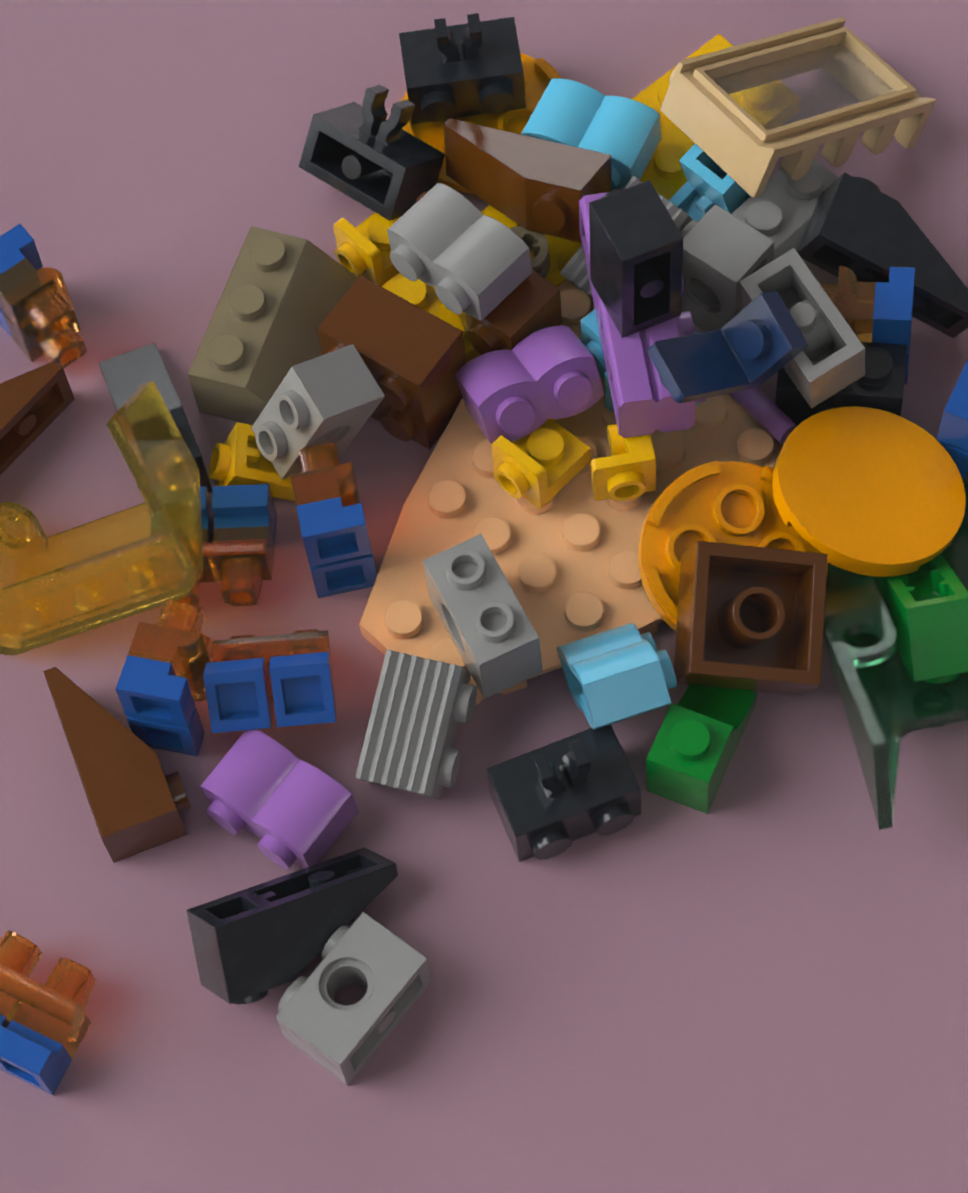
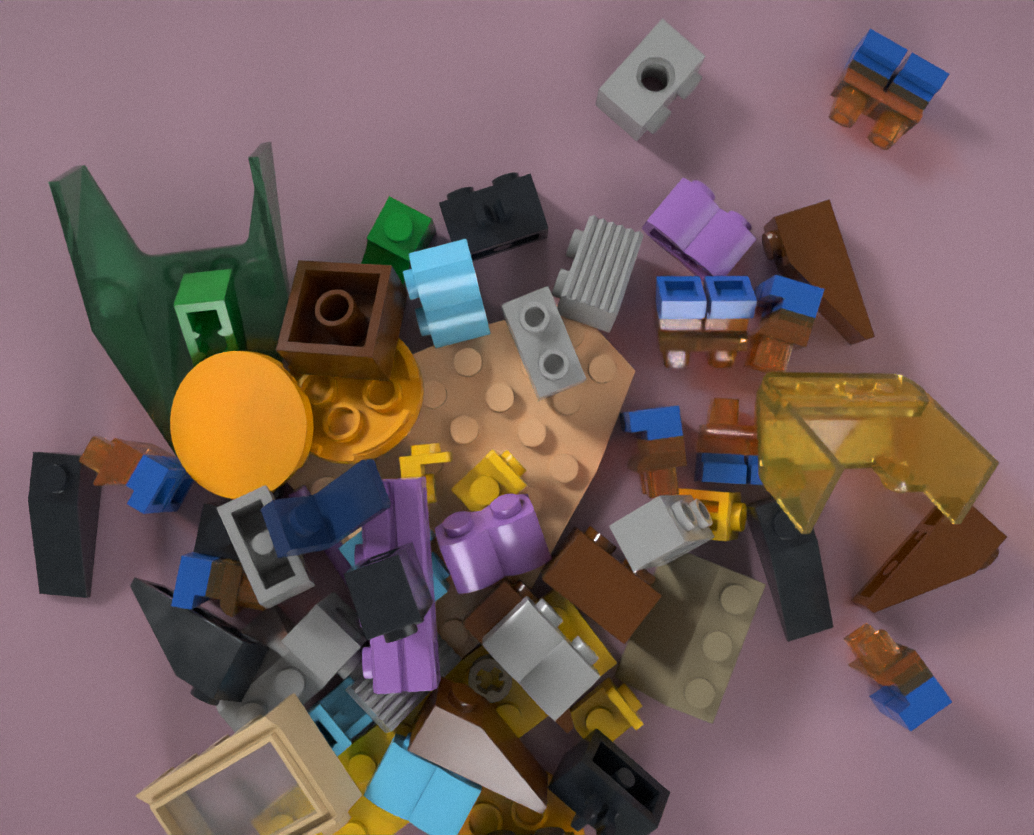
camera: 175 degrees right, 25 degrees up
(281, 925) = (693, 136): black slope -> none

